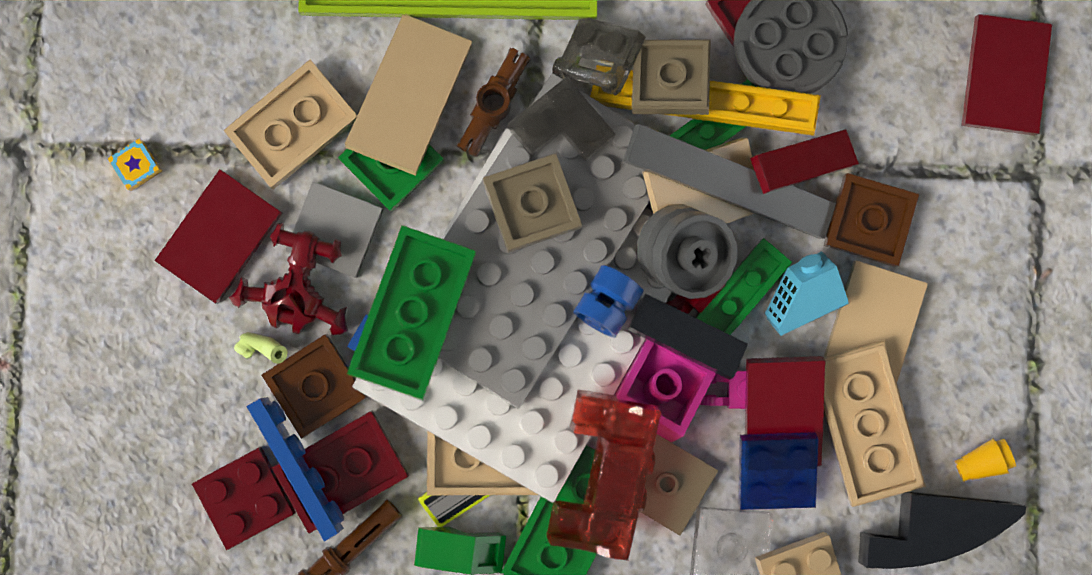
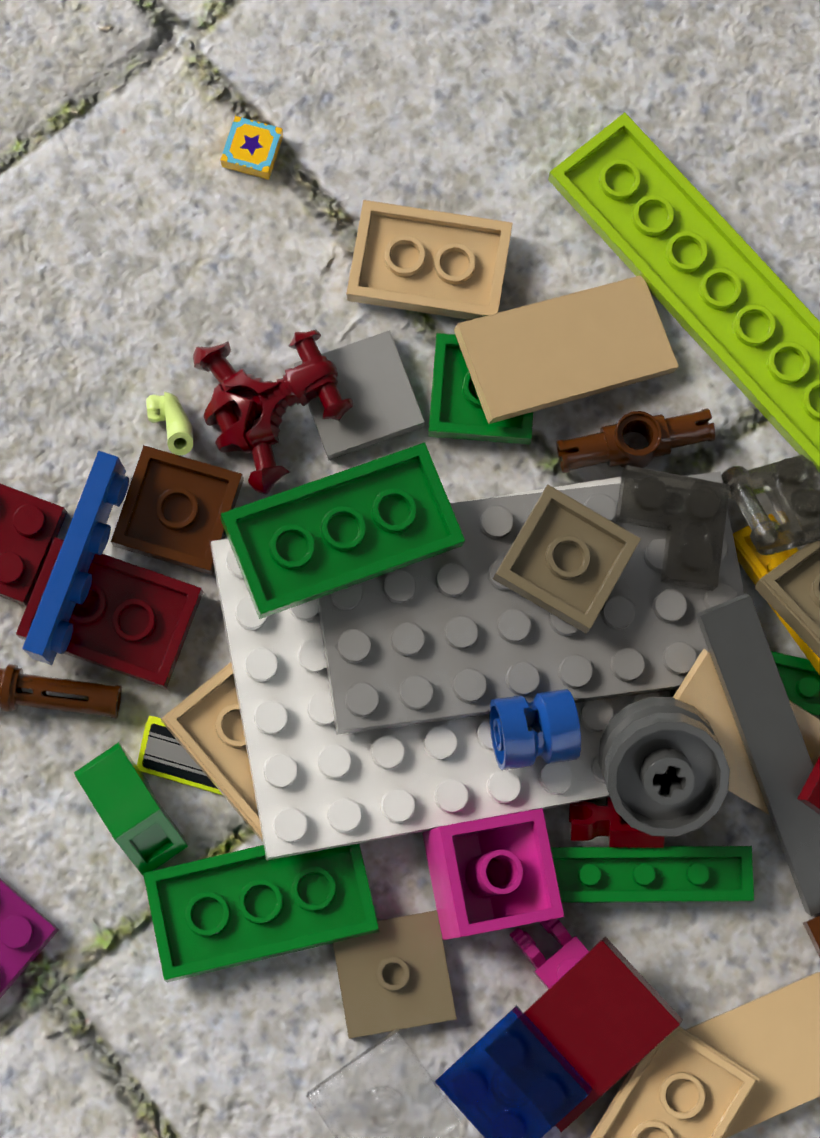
camera: 50 degrees right, 10 degrees down
(218, 236) = (250, 287): dark red tile -> none
(616, 479) = (354, 903): clear red bracket -> none
(687, 336) = (572, 851): black tile -> none
(806, 293) = (735, 945): medium azure slope -> none

